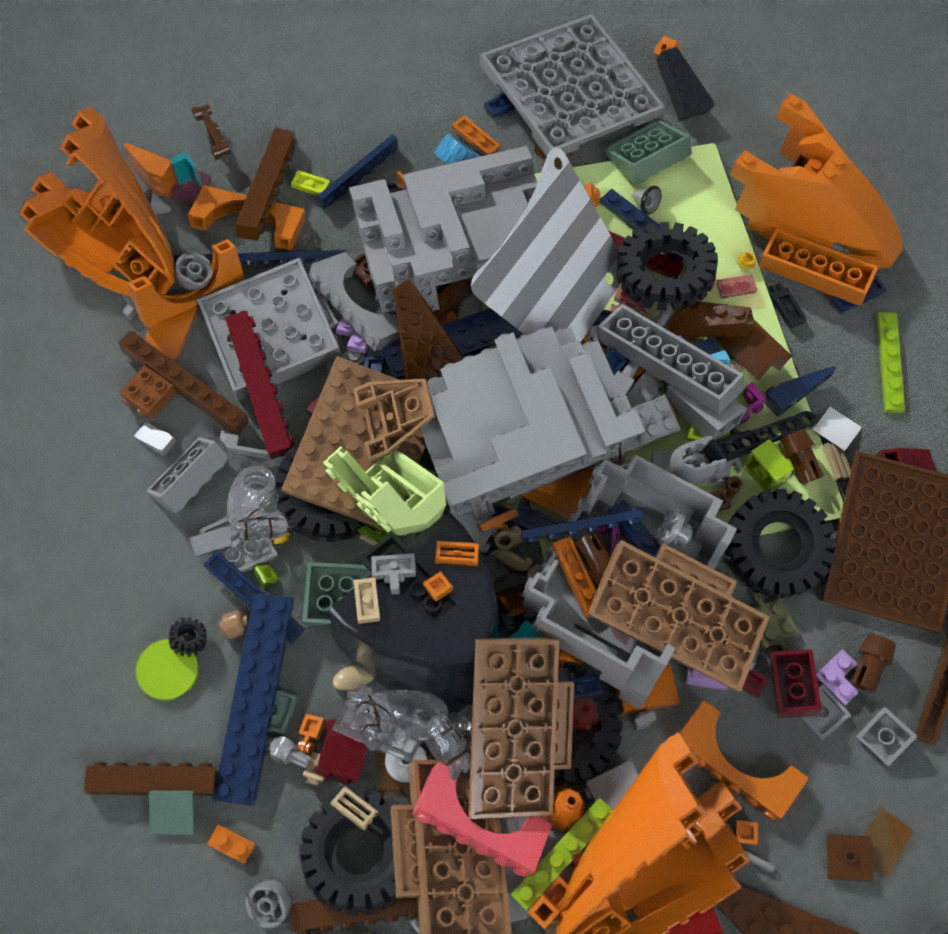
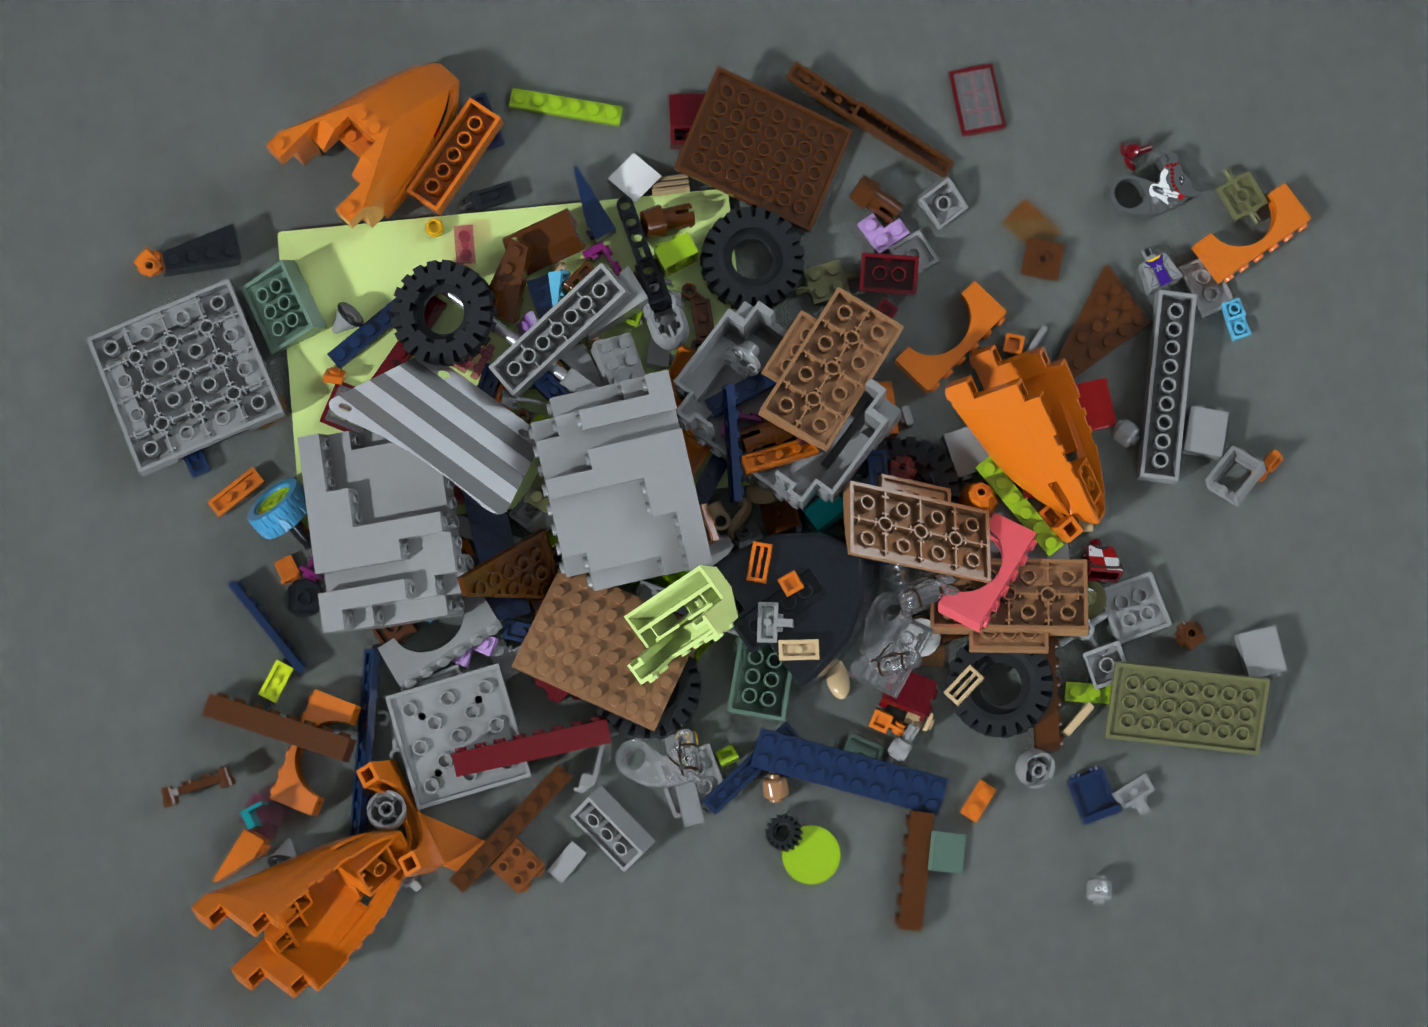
camera: 85 degrees left, 15 degrees up
(393, 412) = (596, 610): medium nougat wedge -> none

